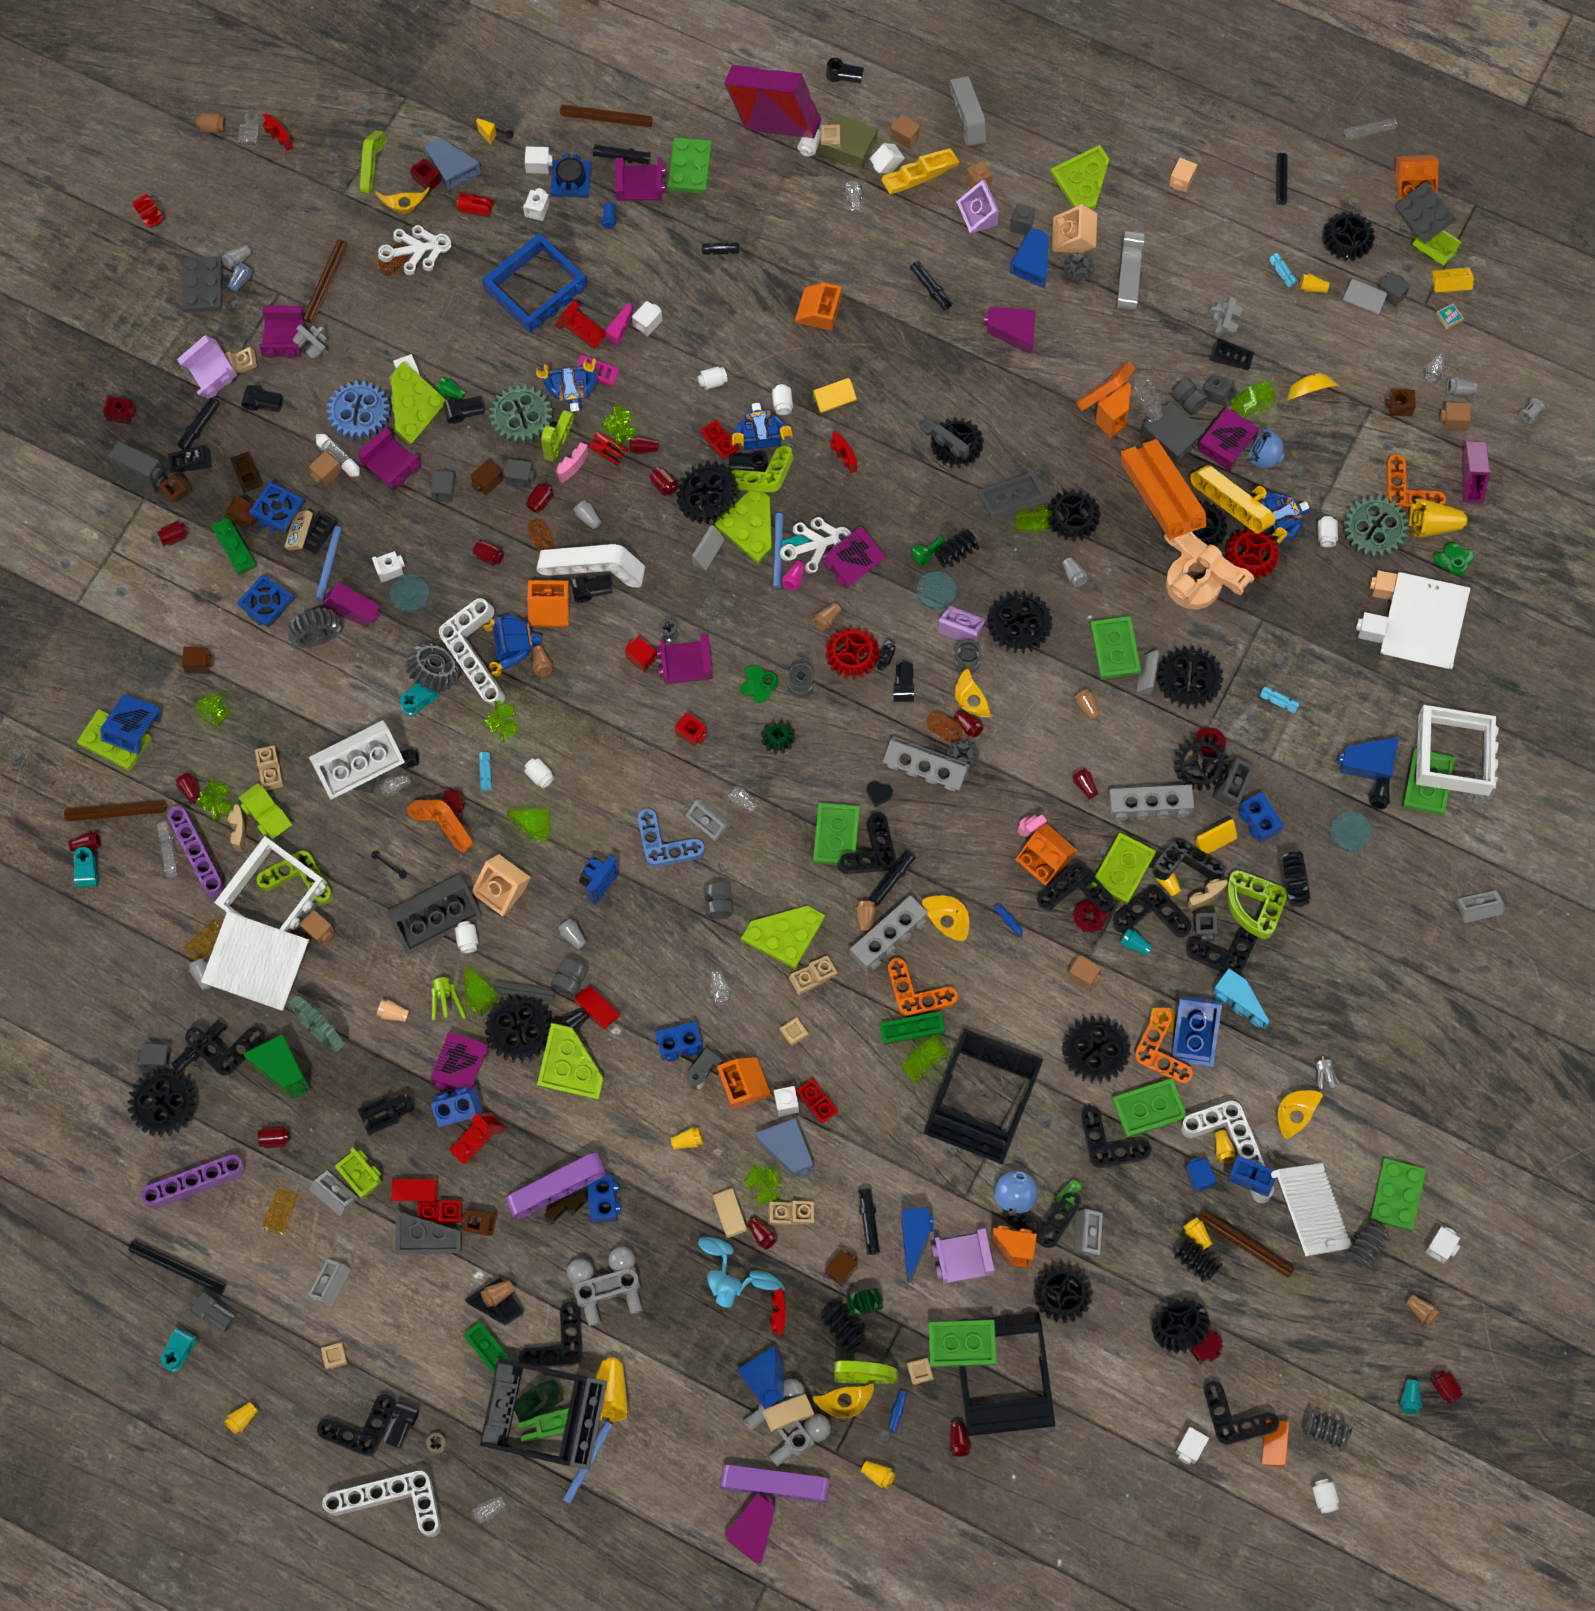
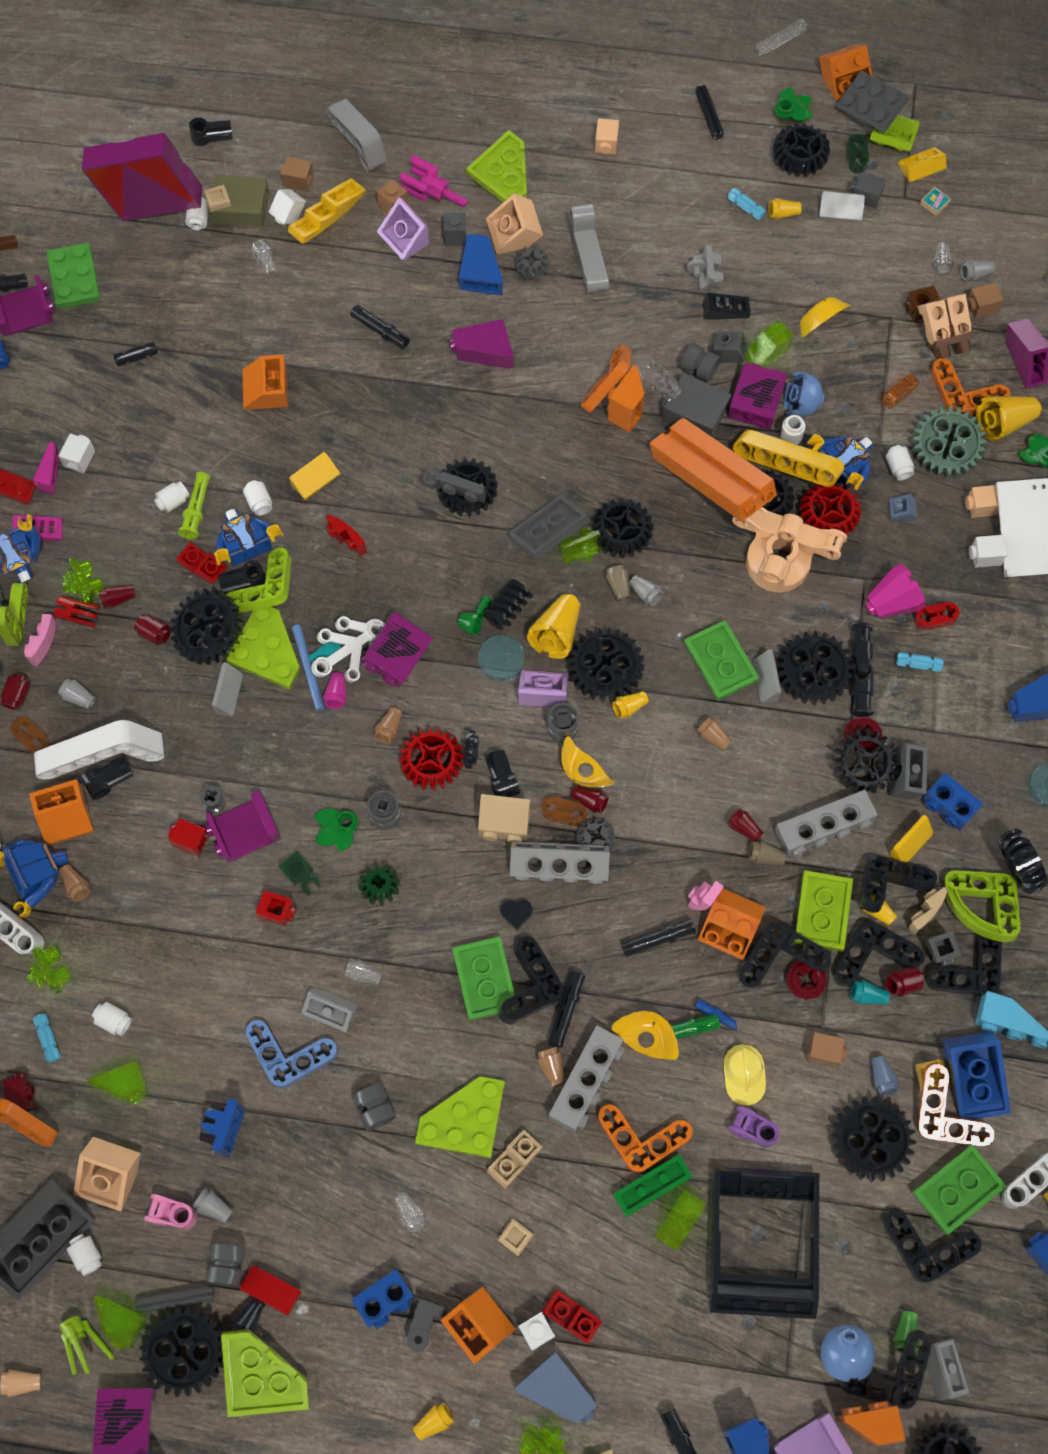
camera: 20 degrees left, 0 degrees up
(537, 926) = (166, 1211): none -> bright pink piece
(718, 706) = (298, 871): none -> clear green plate
(726, 396) = (193, 513): none -> lime pin
(893, 716) = (503, 818): none -> tan slope
(983, 847) = (658, 937): none -> black pin
(989, 579) = (556, 627): none -> yellow cone
(992, 923) = (696, 1026): none -> green axle
(1002, 1009) = (752, 1127): none -> medium lavender piece
(1014, 972) = (744, 1074): none -> light yellow piece
(1015, 173) = (429, 184): none -> dark pink plant
(1026, 659) = (629, 704): none -> yellow cone
(1054, 558) = (619, 582): none -> dark tan cone
(1093, 810) = (766, 854): none -> dark tan cone
(1123, 1009) = (884, 1077): none -> sand blue cone
(1167, 942) = (905, 982): none -> dark red brick
(1234, 678) = (862, 654): none -> black piece
(1246, 477) = (793, 429): none -> white brick
(1278, 639) = (895, 594): none -> dark pink cone
(1309, 667) = (937, 618): none -> red beam
(1316, 570) = (903, 508): none -> sand blue slope
(1352, 471) = (900, 391): none -> clear orange beam
(1359, 194) = (793, 106): none -> green plate
(1394, 252) = (853, 153): none -> clear green beam
(1411, 432) = (946, 324): none -> light nougat hips

